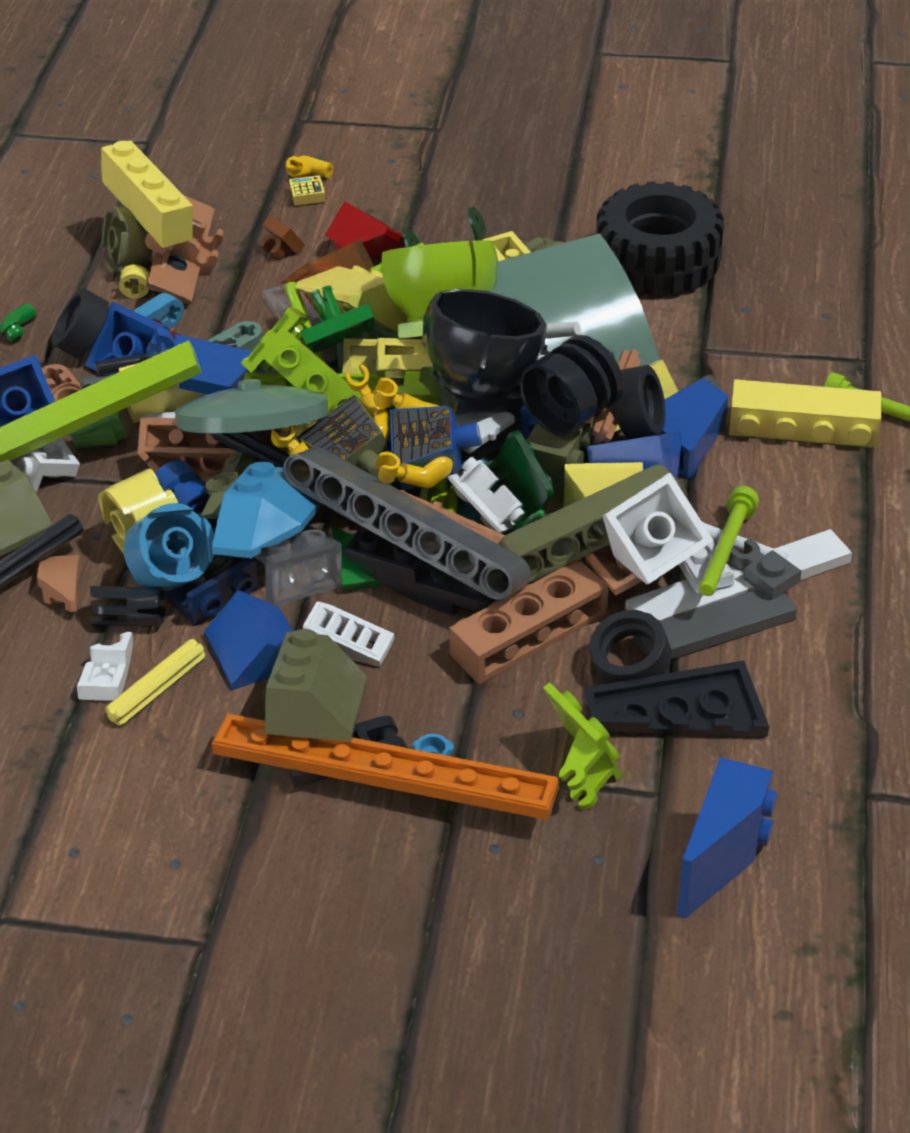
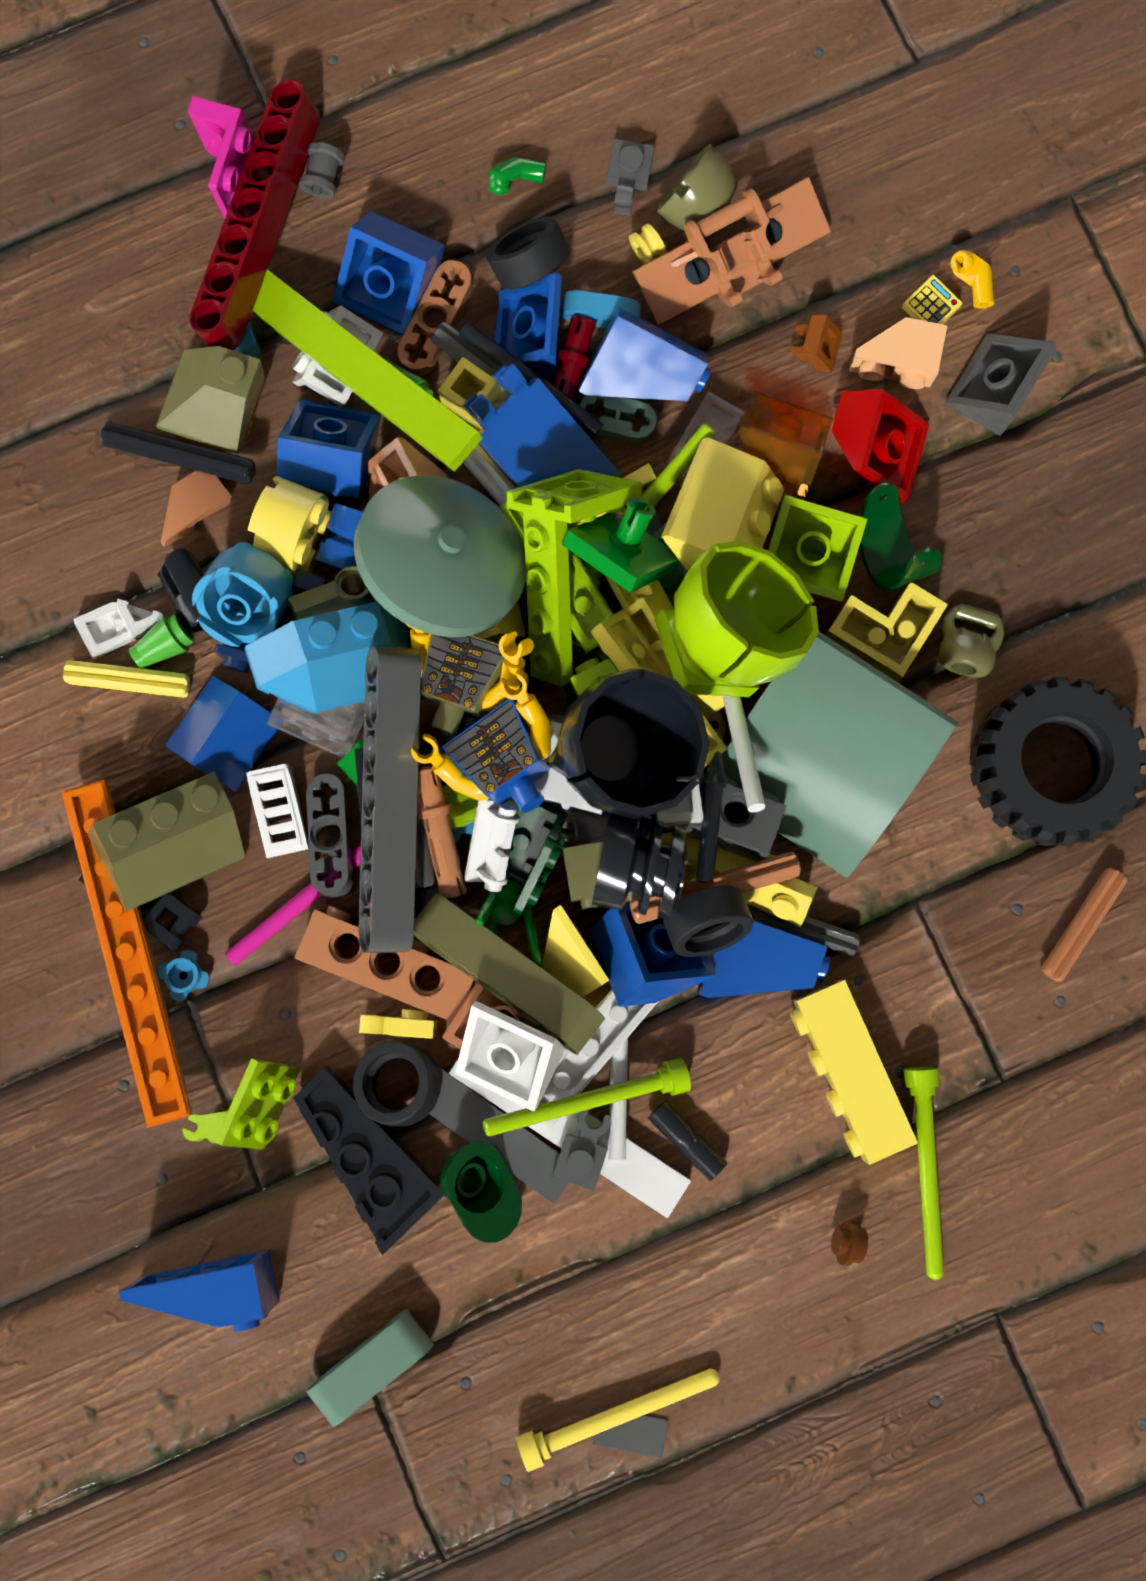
camera: 60 degrees right, 40 degrees up
(75, 273) = (629, 171): none -> dark grey plate
(82, 491) = (327, 448): none -> blue slope
(147, 193) = (731, 180): light yellow brick -> none
(149, 638) = (162, 642): none -> bright green cone
(211, 301) = (643, 363): none -> slope
(323, 203) = (902, 353): none -> light nougat slope
(363, 597) = (339, 805): none -> dark grey beam
(387, 175) = (999, 379): none -> dark grey slope
(434, 663) = (283, 915): none -> dark pink bar
(582, 627) = (410, 1024): none -> light yellow plate
(749, 640) = (482, 1191): none -> dark green piece
(780, 282) = (1084, 924): none -> nougat axle
(792, 521) = (692, 1145): none -> black piece
(863, 778) = (369, 1368): none -> sand green beam

